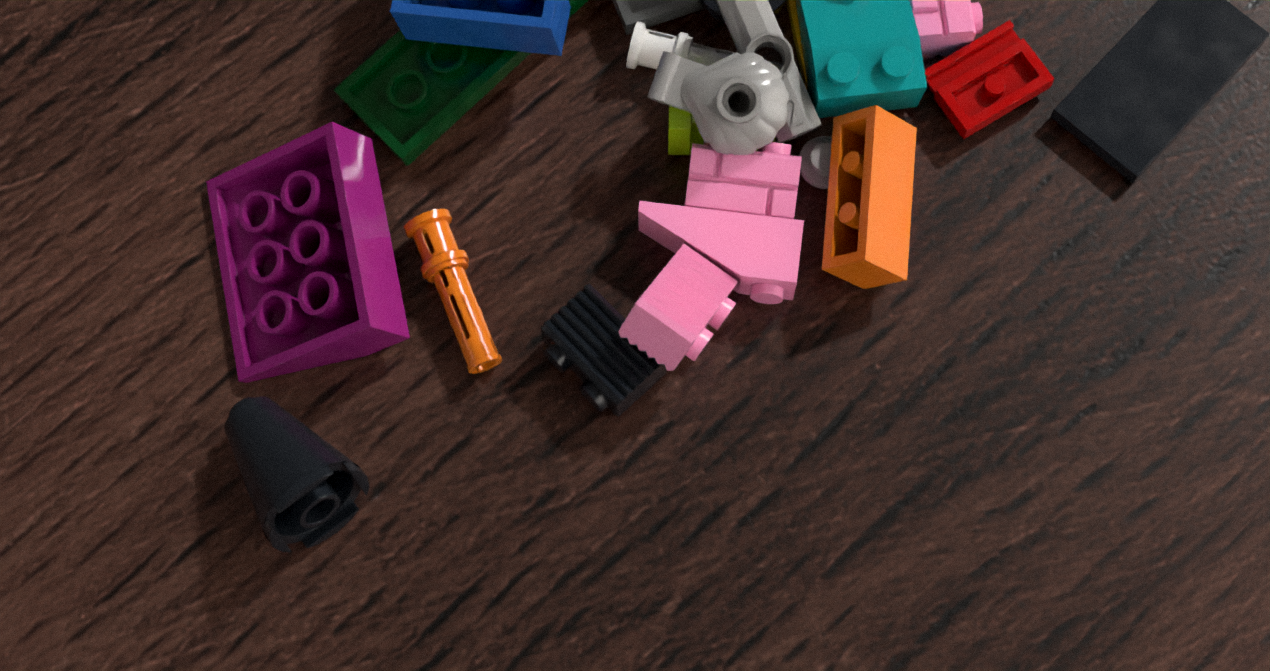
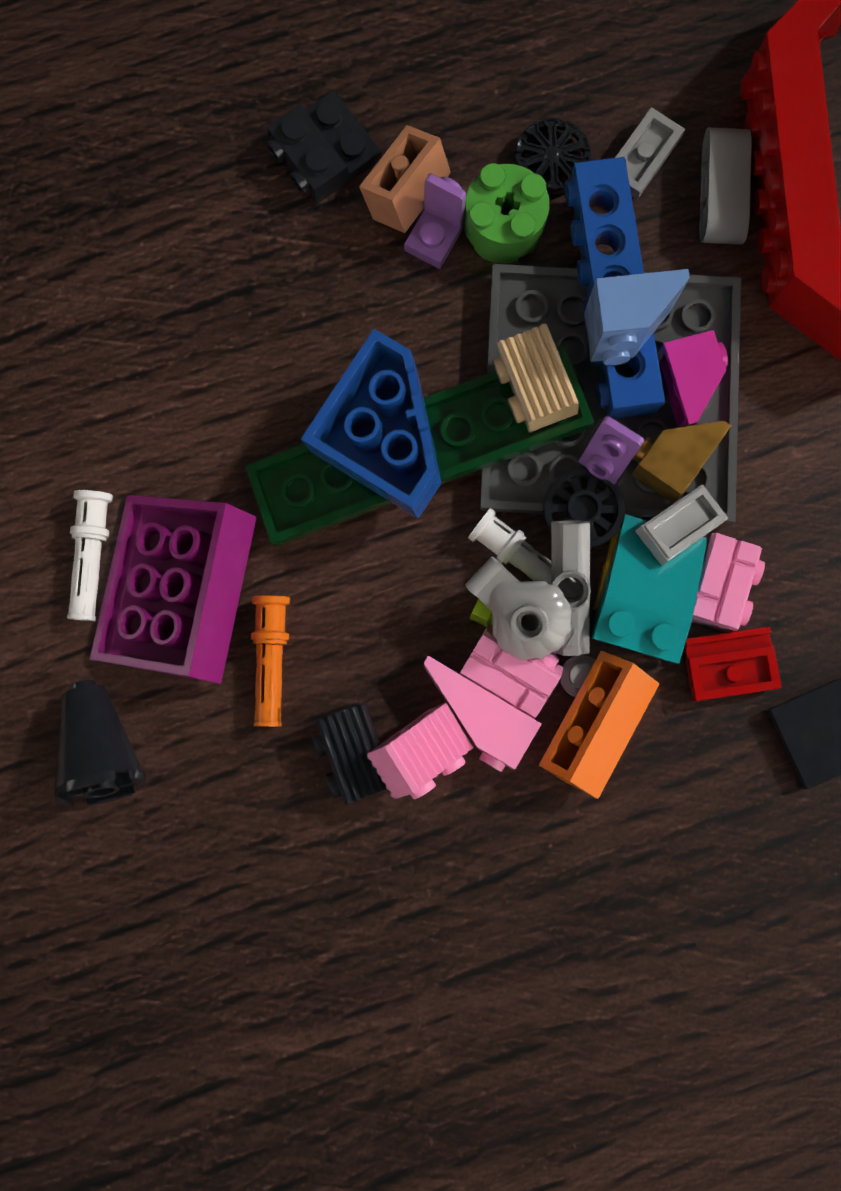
camera: 20 degrees right, 10 degrees up
(180, 240) = (88, 535): none -> white pin

